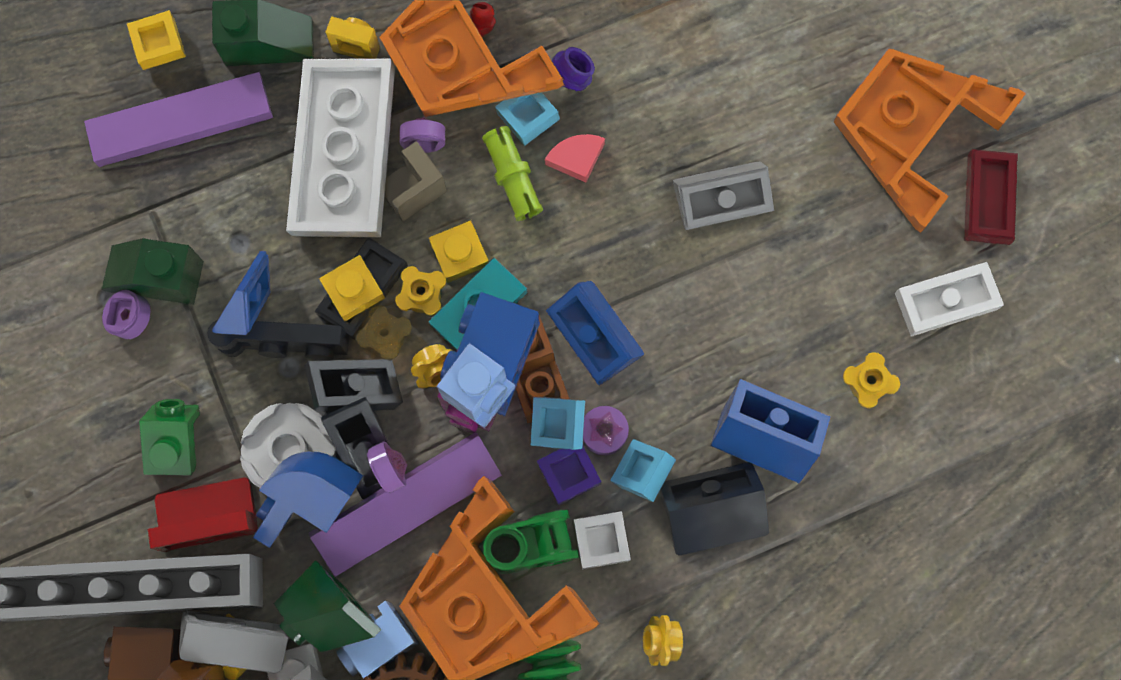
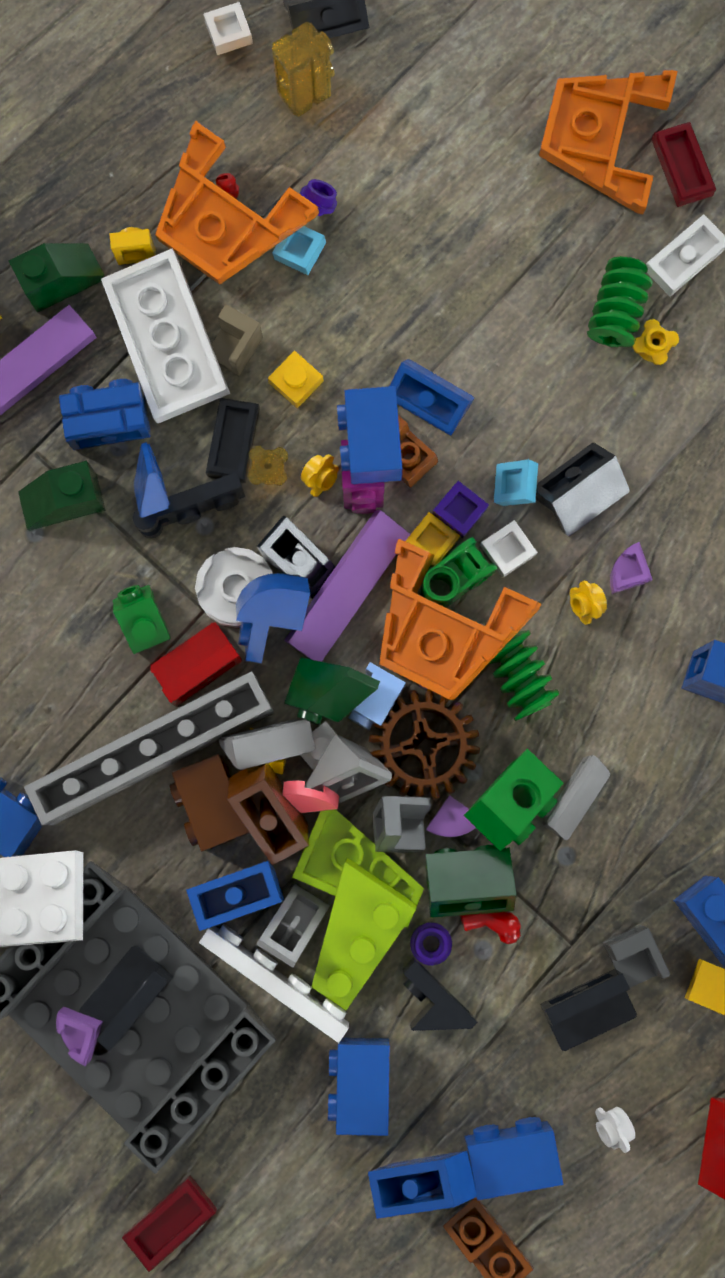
camera: 25 degrees left, 5 degrees up
(126, 314) = (58, 539): medium lavender tile -> none
(237, 203) = (104, 414): none -> blue brick
(346, 381) = (261, 512): black slope -> none
(352, 288) = (228, 441): yellow plate -> none
(387, 466) = (325, 560): medium lavender tile -> none
(426, 132) = (225, 294): medium lavender tile -> none
(428, 302) = (284, 432): yellow plate -> none
(476, 386) = (378, 459): light blue brick -> none
(492, 280) = (321, 429): teal plate -> none
(512, 173) = (309, 300): lime pin -> none
(525, 491) = (433, 537): none -> yellow tile
(557, 423) = (437, 473): medium azure plate -> none
(576, 155) = (352, 266): coral tile -> none
(605, 430) = (472, 467): medium lavender tile -> none
(724, 195) = (480, 248): light grey slope -> none
(728, 624) = (630, 570): none -> medium lavender tile
(770, 431) = (599, 411): blue brick -> none
(846, 318) = (619, 302): none -> green piece

